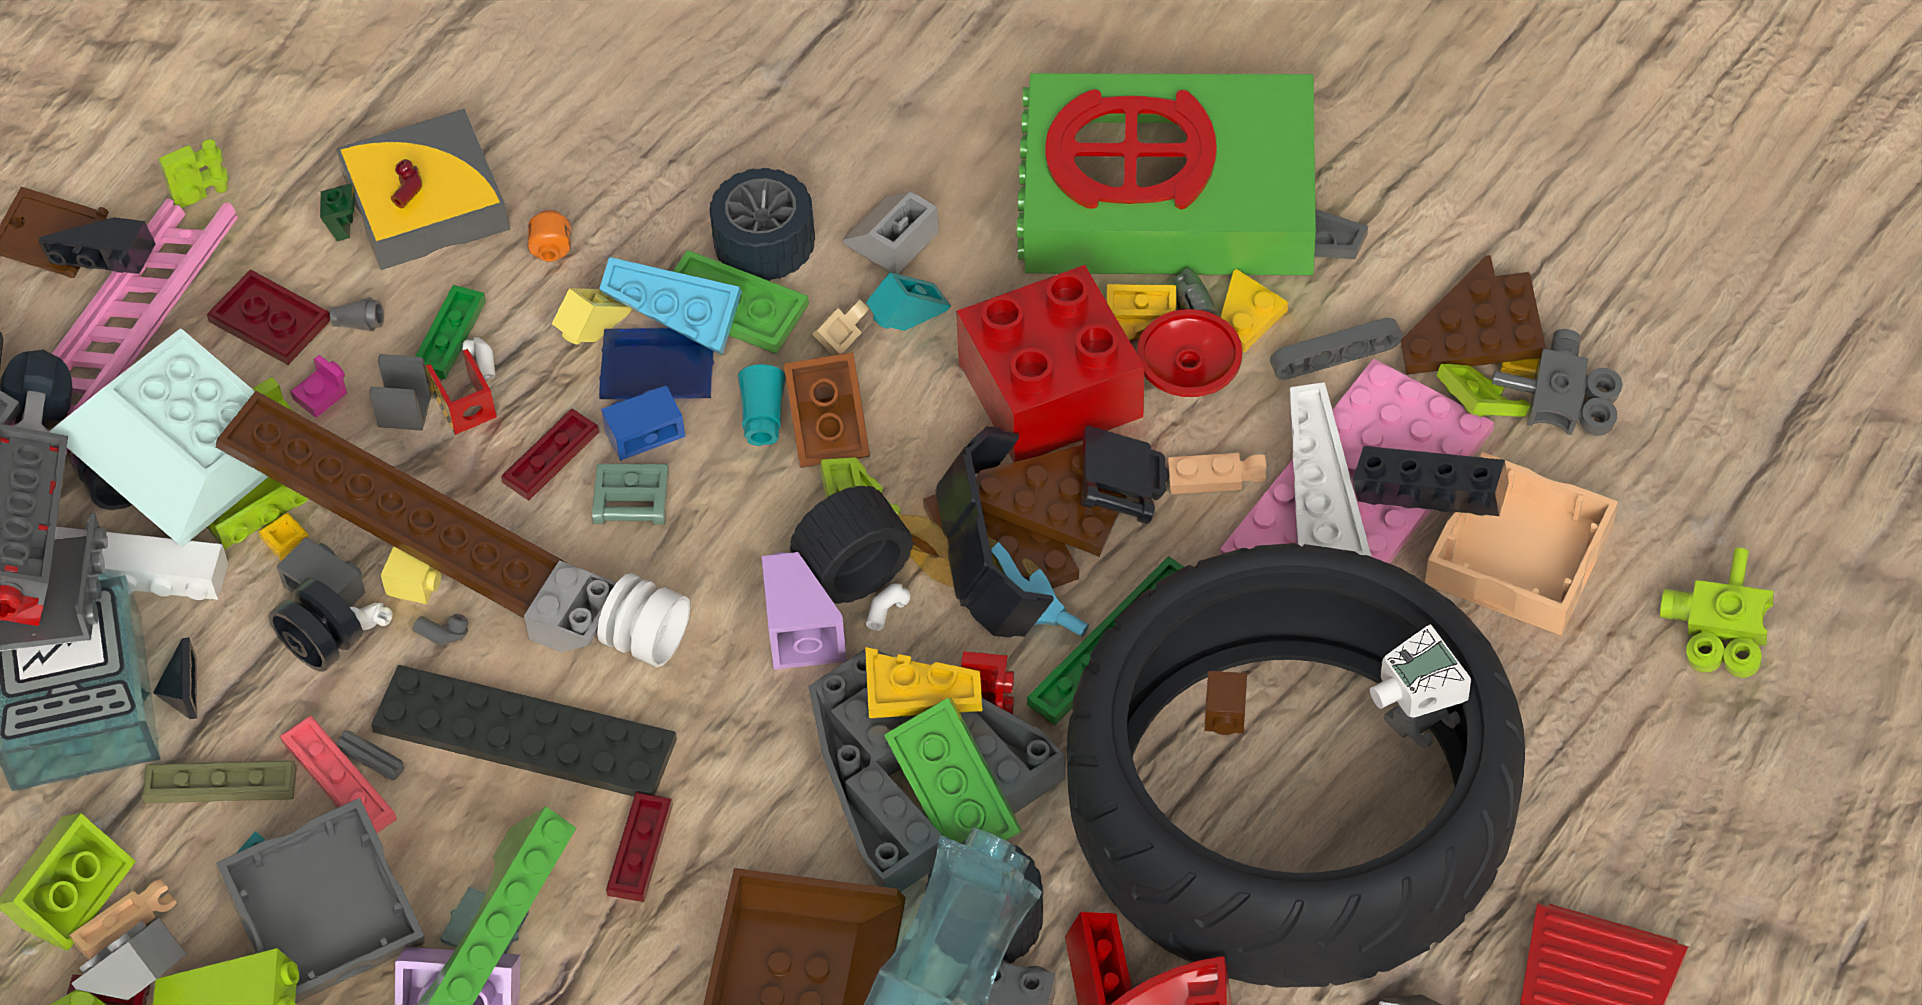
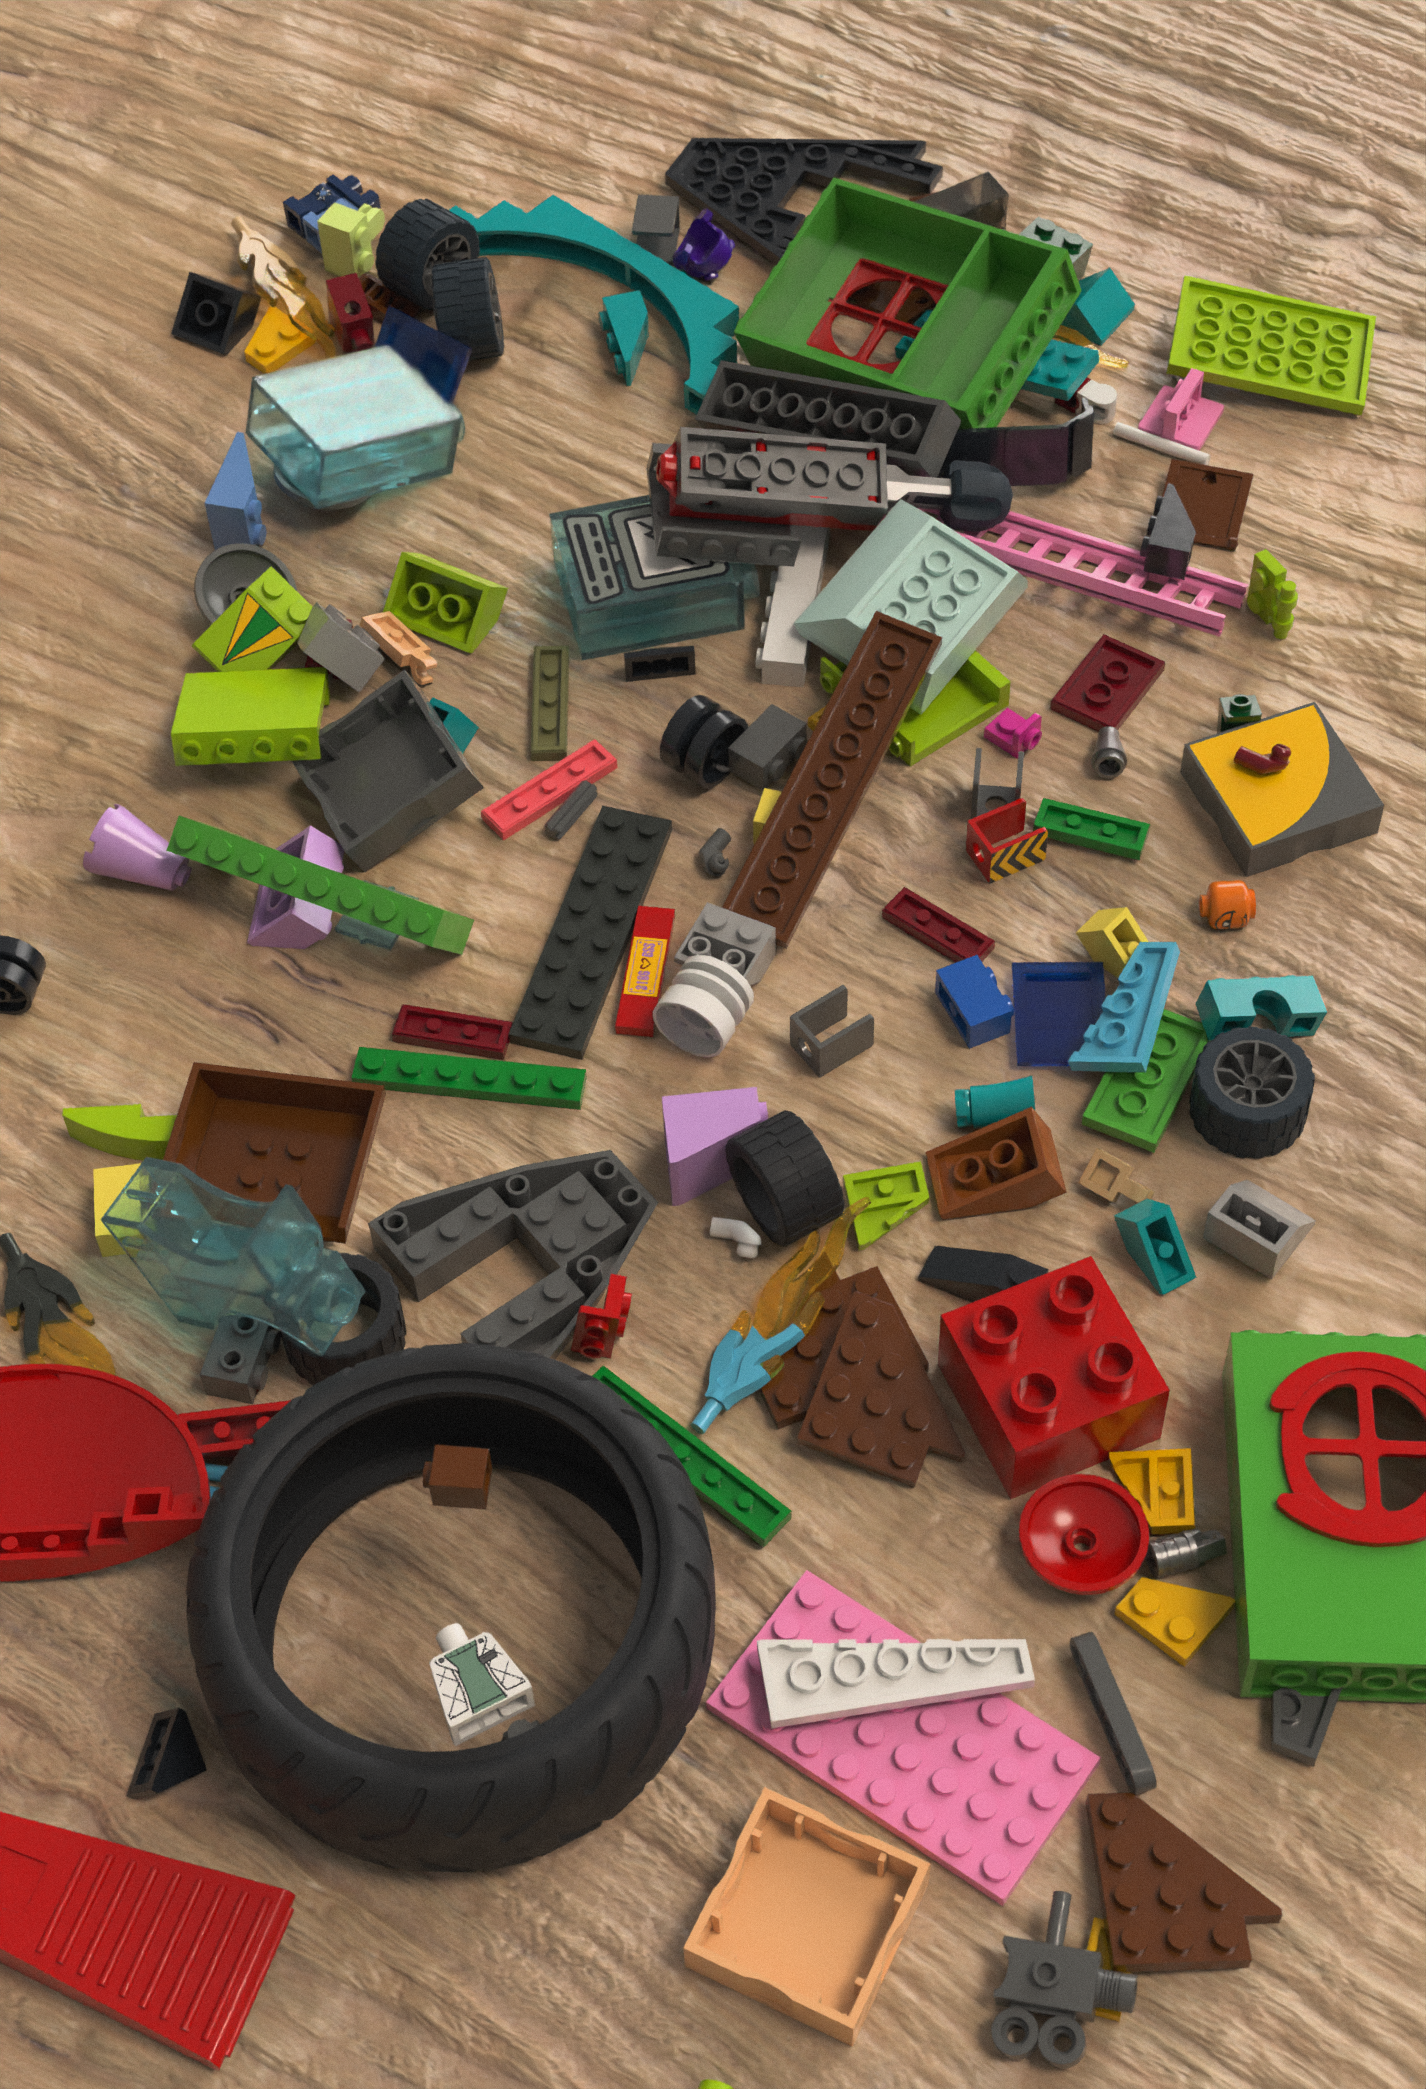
camera: 90 degrees right, 0 degrees up
(372, 615) = (731, 794): white arm -> none
(483, 354) = (1070, 856): white arm -> none
(581, 685) = (645, 971): none -> red tile
(630, 483) = (894, 995): sand green plate -> none
(670, 213) = (1287, 1001): none -> teal arch
(670, 549) = (838, 1048): none -> dark grey piece
(696, 831) = (471, 1078): none -> green plate
(911, 687) = (588, 1237): yellow wing -> none
(939, 419) = (975, 1272): none -> black slope
(951, 775) = (479, 1281): bright green plate -> none
(977, 582) = (900, 1282): black windscreen -> none
(1124, 468) = (912, 1458): black piece -> none
(1214, 472) = (922, 1567): light nougat plate -> none
(1431, 481) = (872, 1791): black brick -> none
(1478, 392) = (1041, 1870): lime wing -> none

